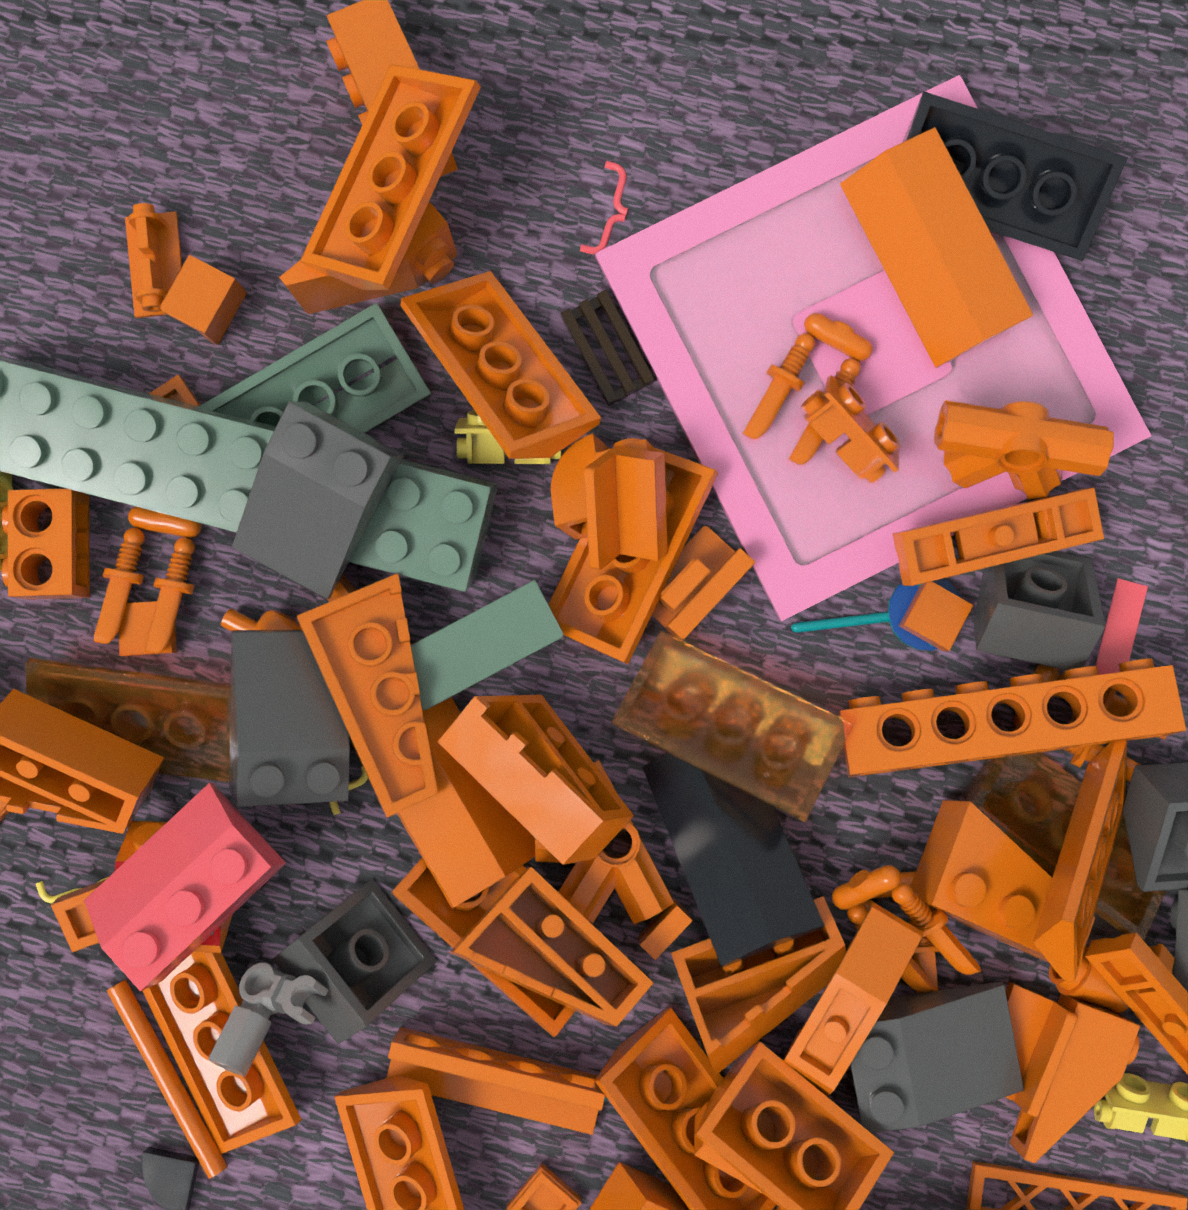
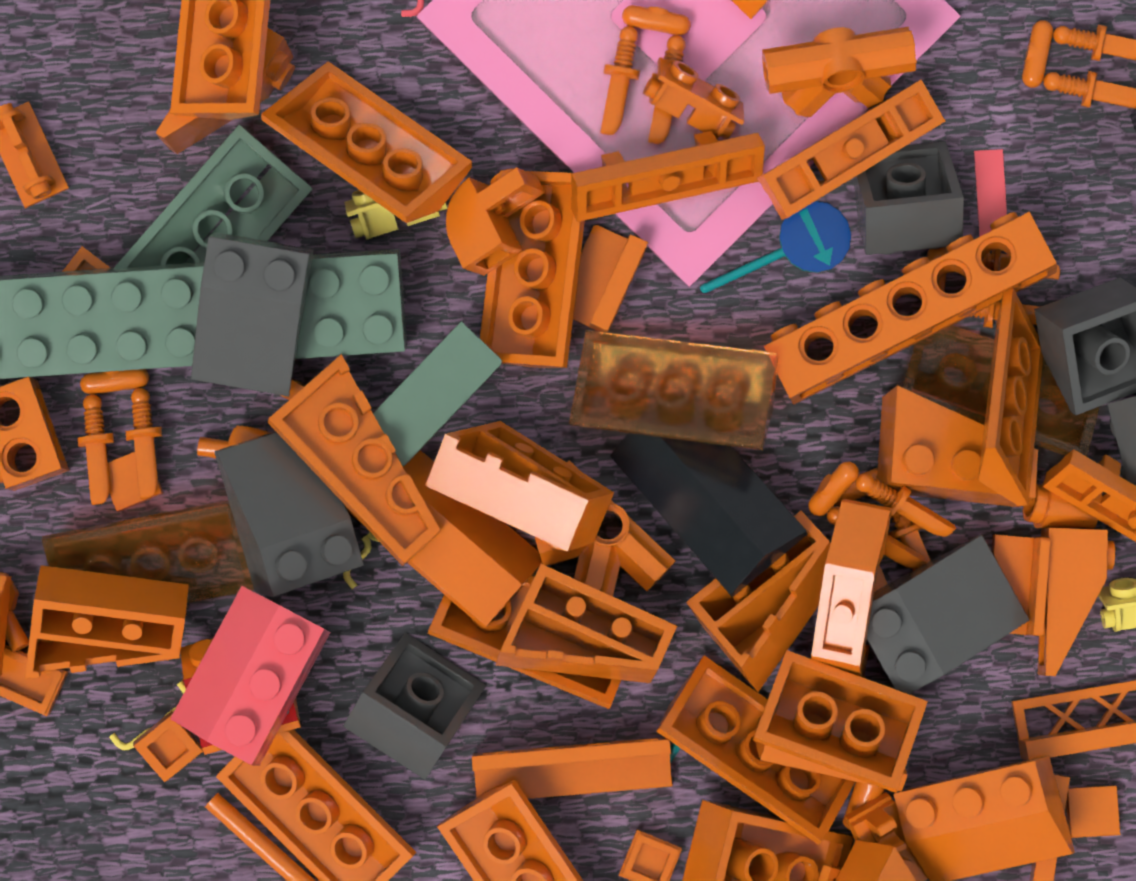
camera: 20 degrees left, 0 degrees up
(203, 299) = (83, 171): orange panel -> none
(264, 994) = (351, 752): light grey bar -> none
(587, 309) = (426, 68): dark brown tile -> none
(626, 505) = (519, 230): orange panel -> none
(664, 929) = (675, 586): orange tile -> none
(683, 584) = (592, 283): orange tile -> none
(798, 500) = (666, 176): none -> orange hinge
(936, 615) = (823, 236): orange tile -> none

